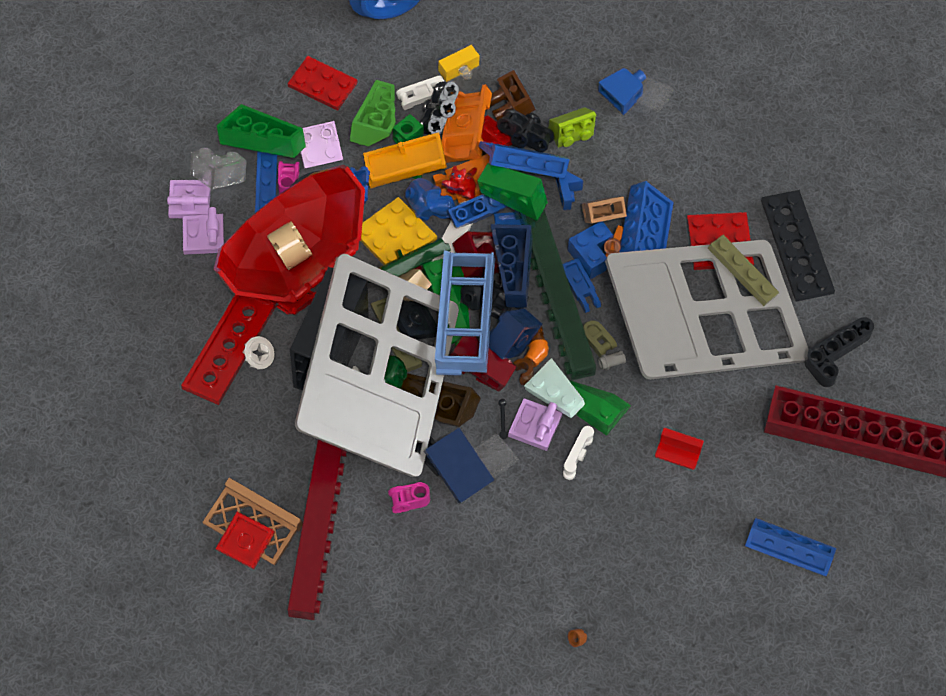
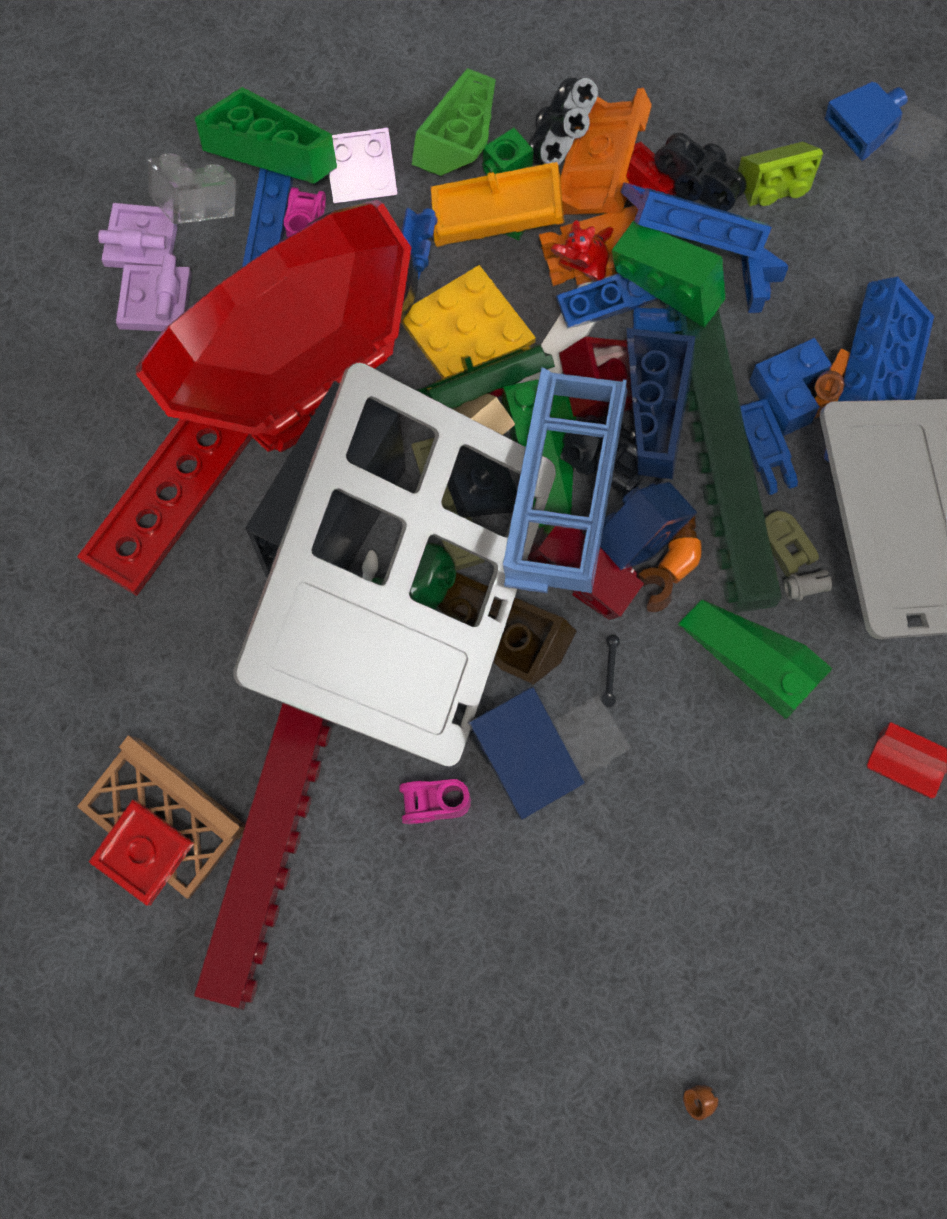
camera: 10 degrees right, 10 degrees up
(263, 346) = (224, 501): white gear -> none
(289, 245) = (283, 333): tan brick -> none
(322, 83) = (381, 66): red plate -> none
(421, 92) = (535, 91): white plate -> none
(426, 200) = (524, 274): blue head -> none
(459, 64) = (604, 53): yellow piece -> none
(513, 91) = (688, 108): reddish brown brick -> none
(535, 424) = (666, 688): lavender plate -> none
(553, 386) = (707, 630): light aqua wing -> none
(578, 452) = (734, 749): white plate -> none
(601, 210) = (812, 321): medium nougat torso -> none

